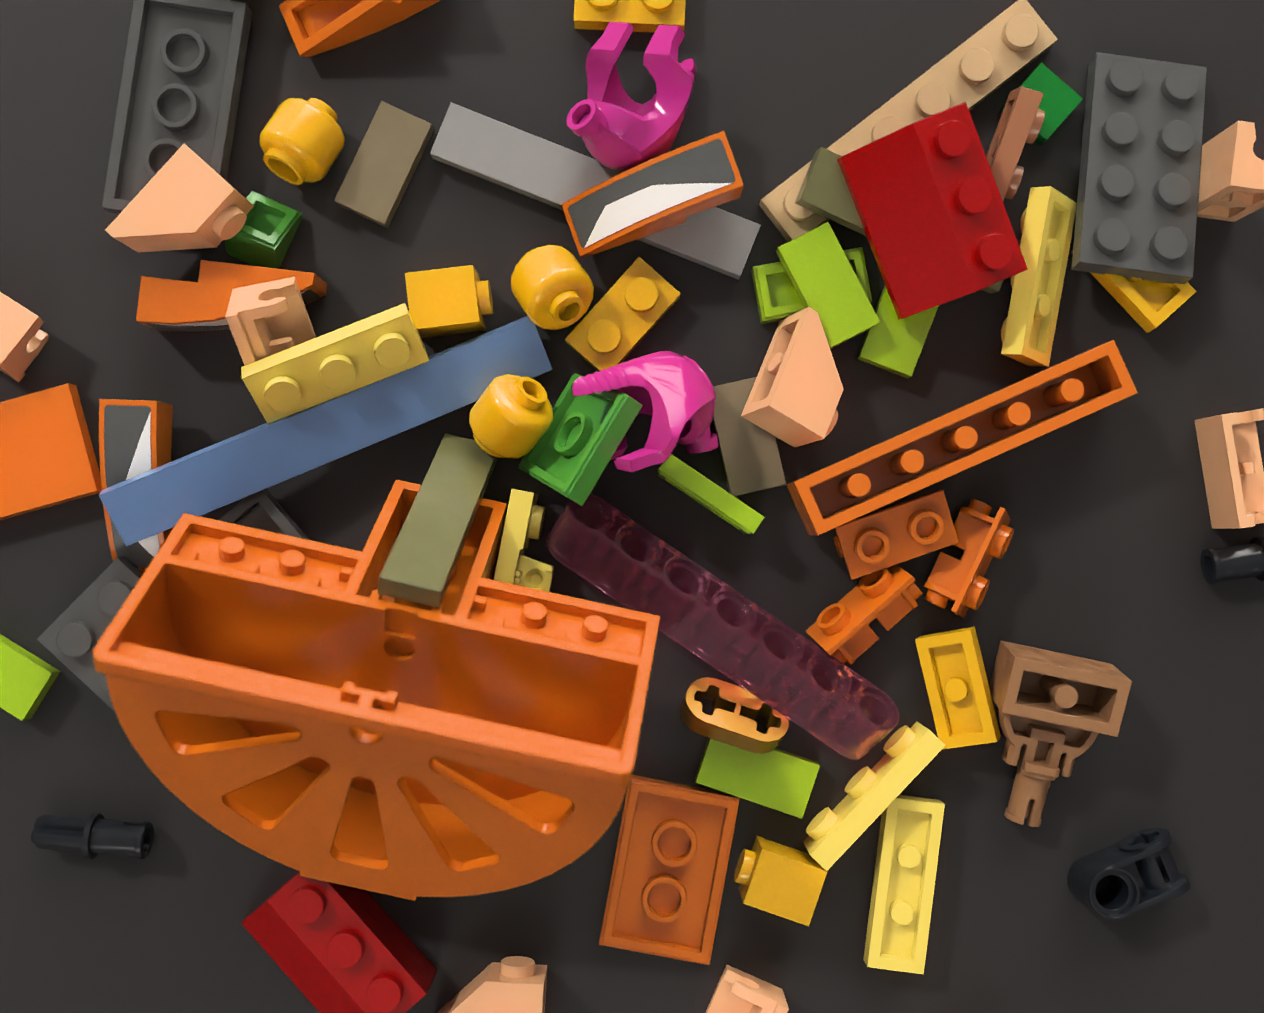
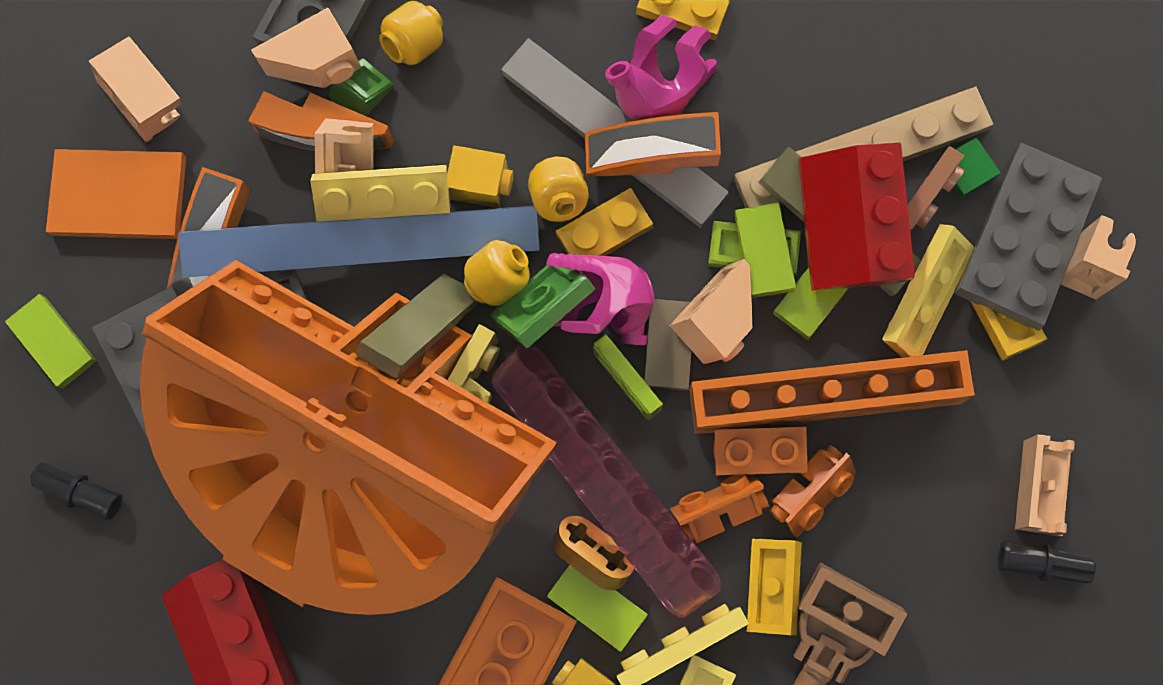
camera: 20 degrees right, 10 degrees down
(384, 164) = (465, 68): dark tan tile -> none

